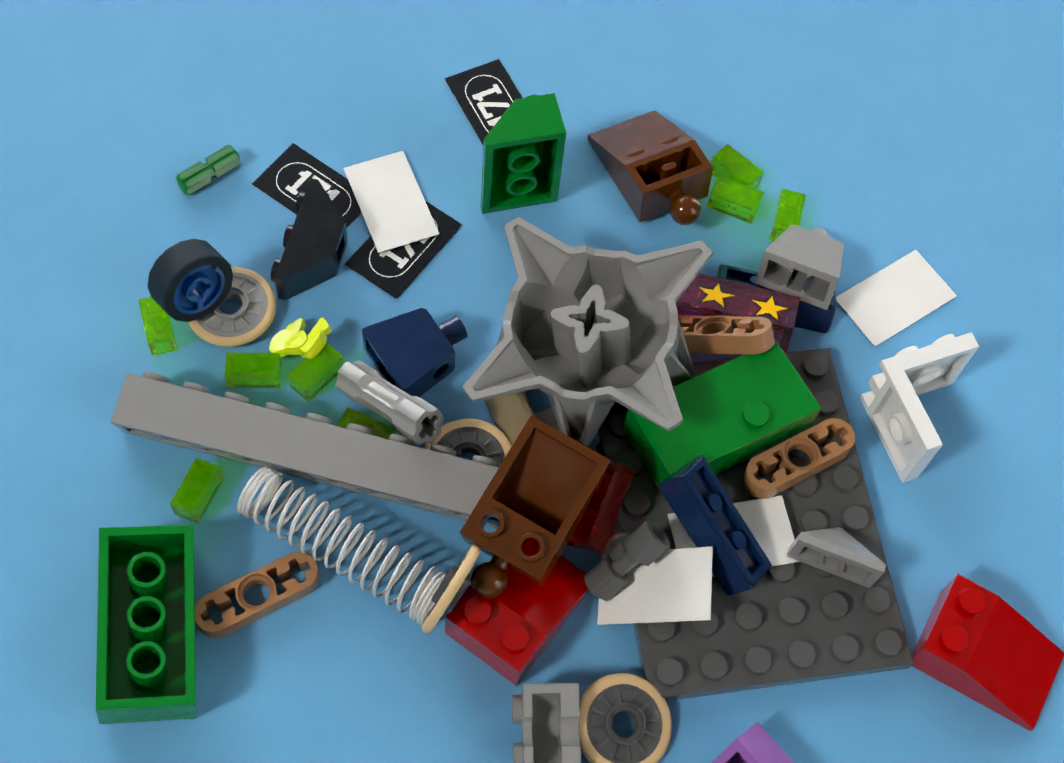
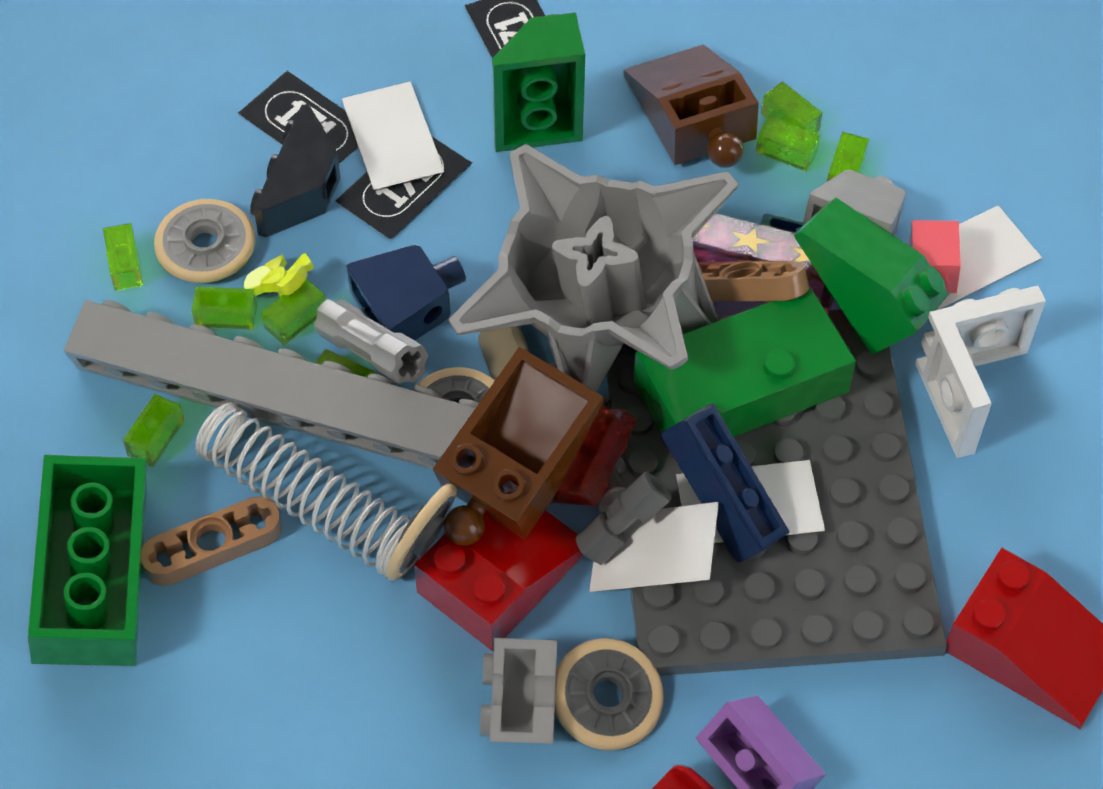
camera: 10 degrees right, 5 degrees down
(190, 280) = (160, 206): black wheel -> none
(215, 165) = (198, 91): green piece -> none
(790, 474) = (820, 437): medium nougat beam -> none
(826, 325) = (871, 274): none -> green slope
(837, 554) = (863, 522): light grey slope -> none
(870, 301) = (941, 247): none -> coral brick

